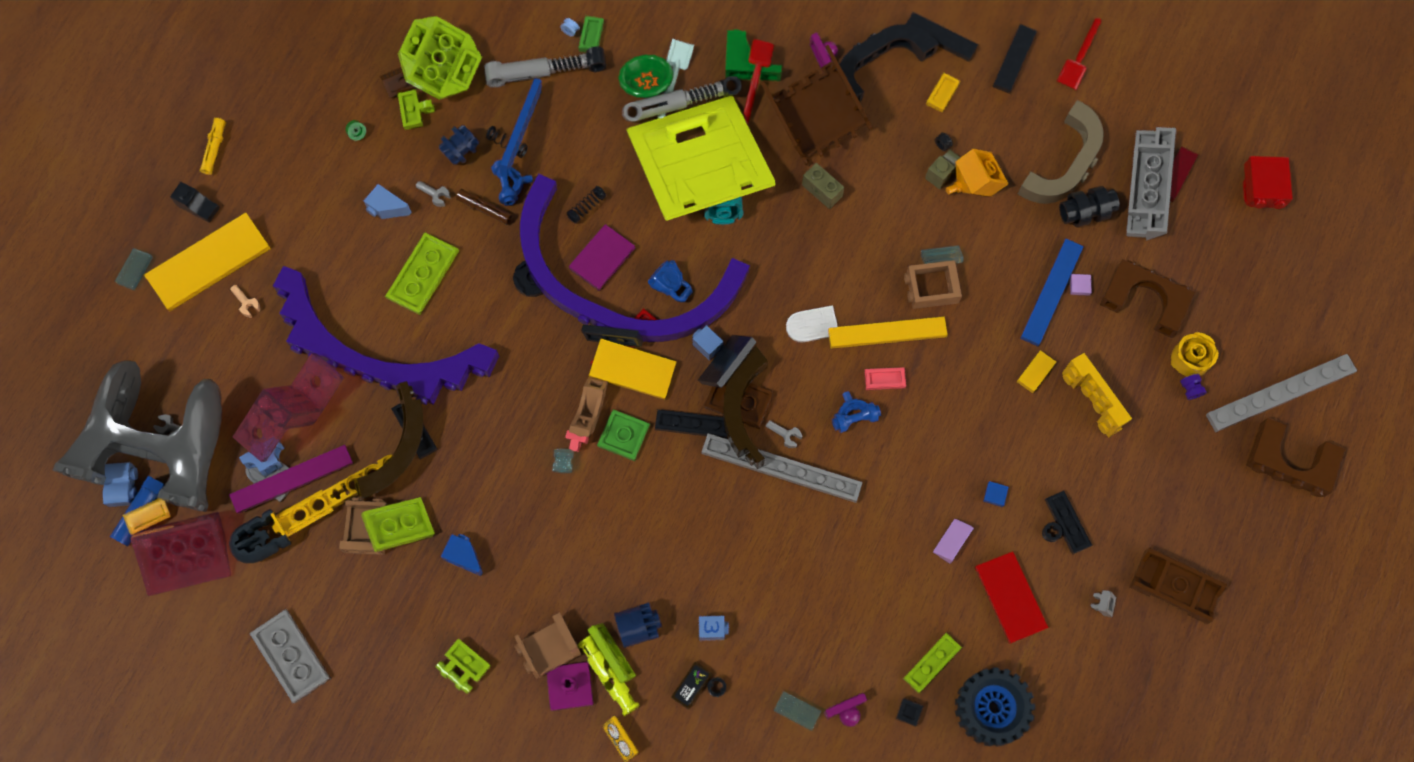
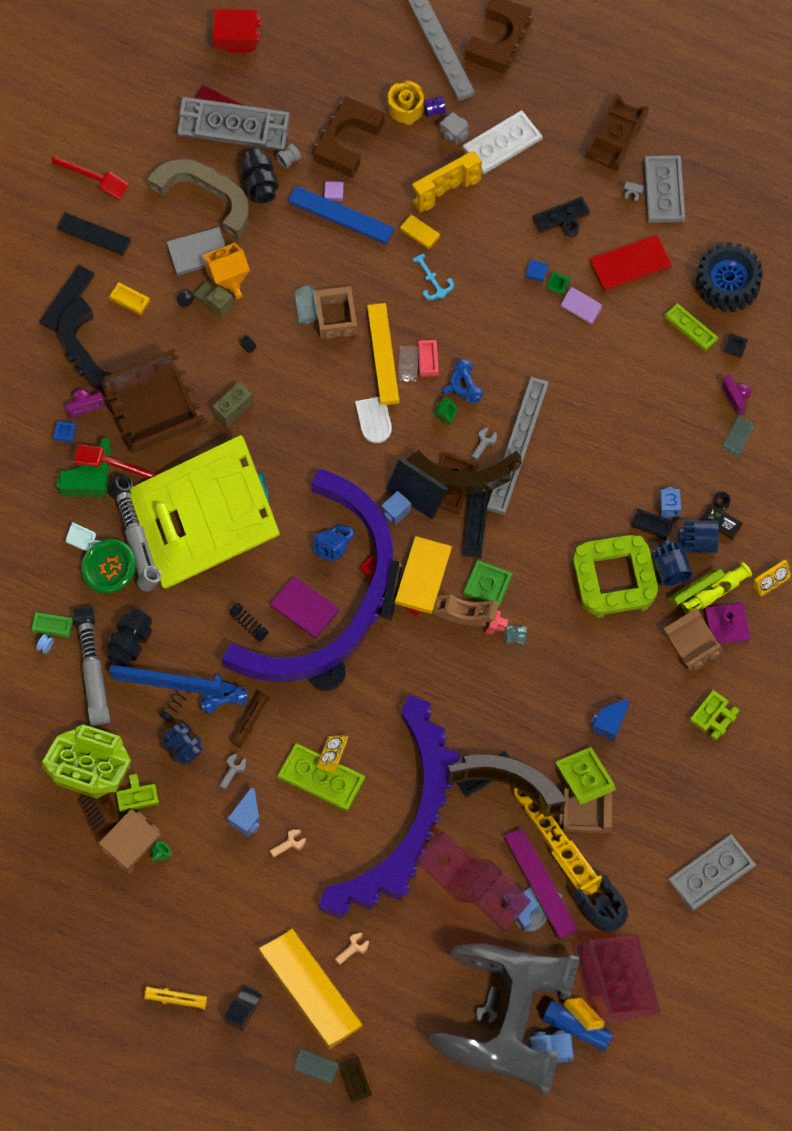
camera: 90 degrees left, 5 degrees down
(114, 302) = (355, 1079): none -> dark brown plate
(356, 245) = (289, 843): none -> light nougat bar
(367, 103) = (129, 840): none -> medium nougat panel
(442, 281) = (332, 753): none -> slope
(562, 91) = (125, 646): none -> black piece
(634, 594) = (618, 601): none -> lime plate
(668, 657) = (699, 536): none -> dark blue gear
(690, 609) = (652, 524): none -> black tile
(792, 37) = (64, 432): none -> blue plate
(820, 394) = (446, 410): none -> green tile
(875, 356) = (408, 363): none -> clear bracket
(893, 200) = (247, 344): none -> black axle
(964, 393) = (441, 293): none -> medium azure piece
(983, 517) = (558, 282): none -> green slope
(1005, 150) = (187, 250): none -> light grey tile
(1110, 640) = (664, 189): none -> light grey tile
(1118, 237) = (288, 156): none -> light grey wheel
(1156, 460) = (504, 141): none -> white tile
(1167, 407) = (454, 128): none -> light grey brick

